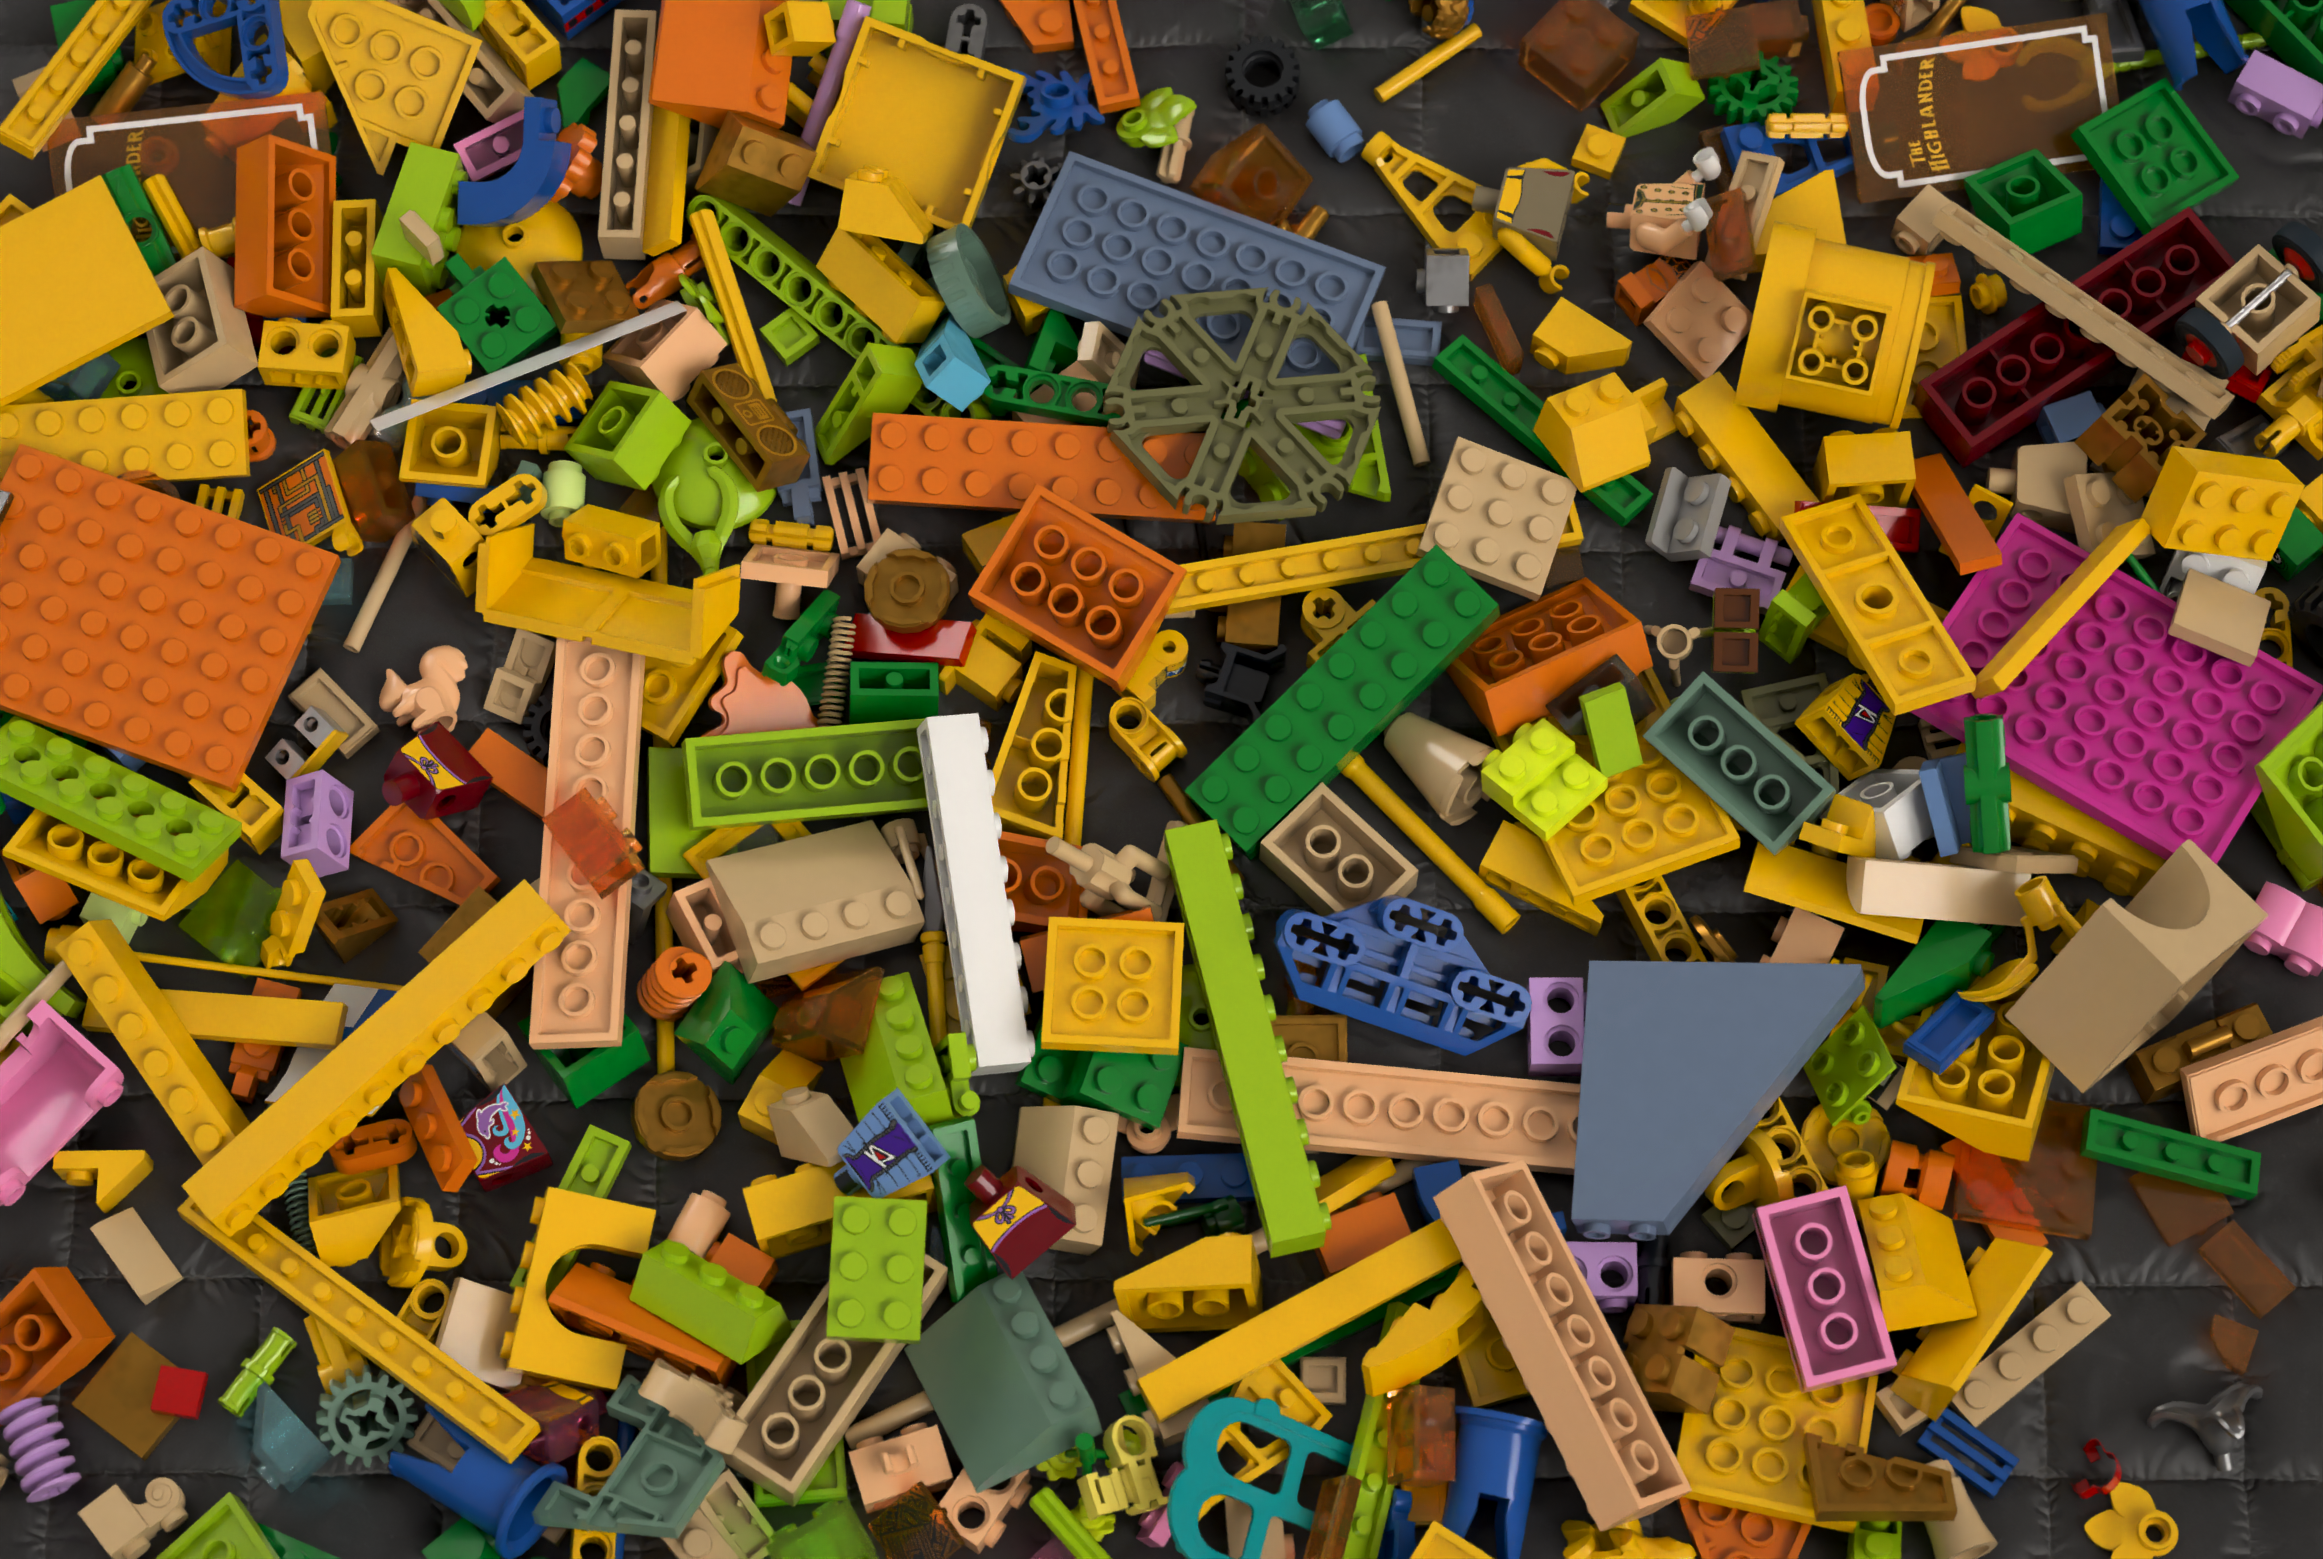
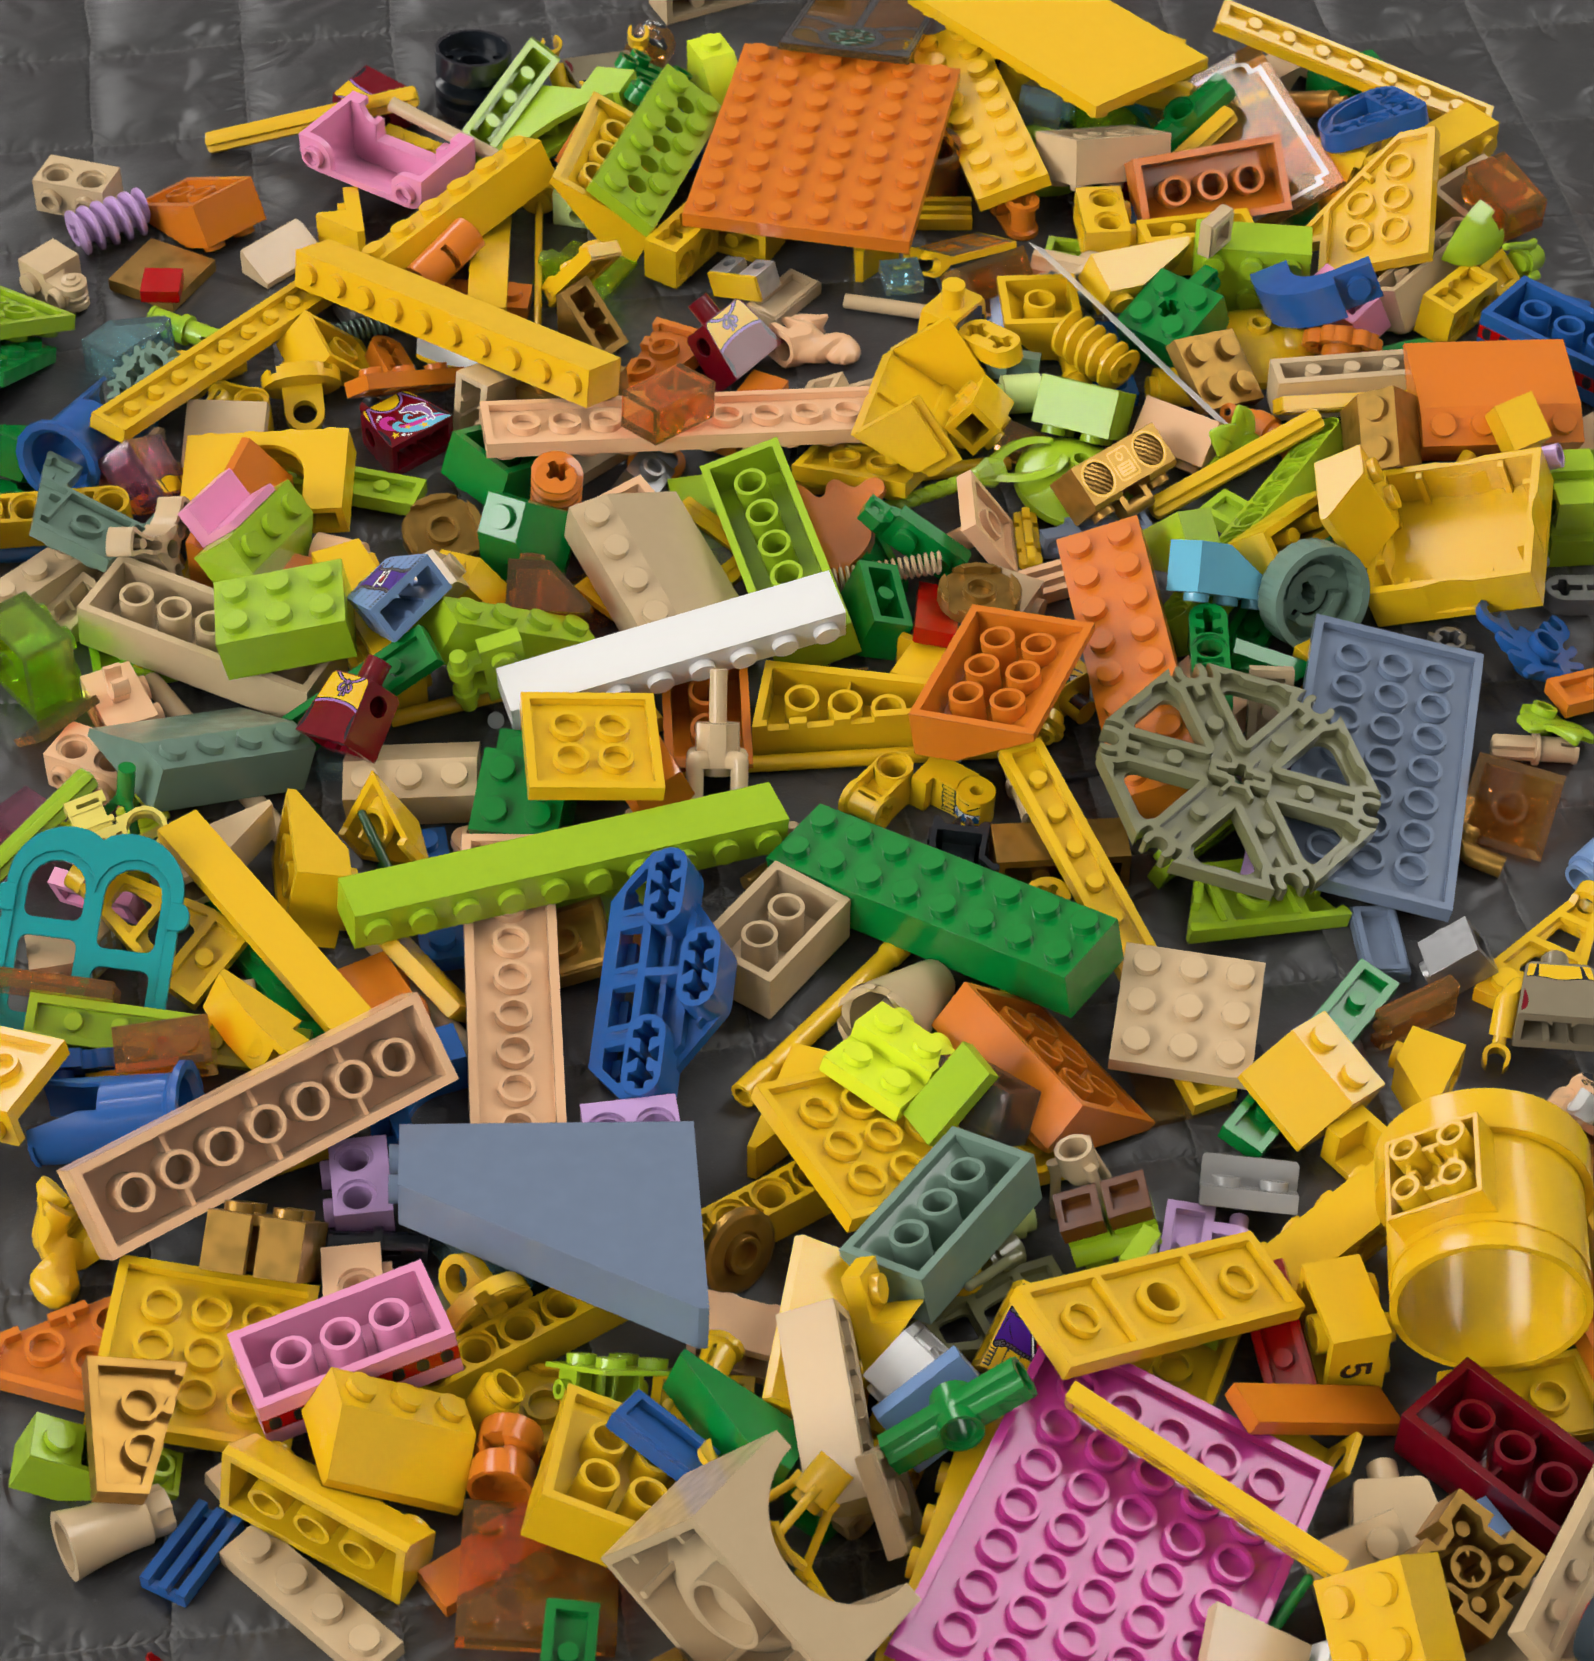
camera: 80 degrees right, 25 degrees down
(228, 1062) = (448, 252): none -> orange pin
(317, 822) = (671, 276): lavender brick -> none
(679, 1320) = (221, 507): none -> bright pink panel
(1400, 383) = (1336, 937): tan piece -> none

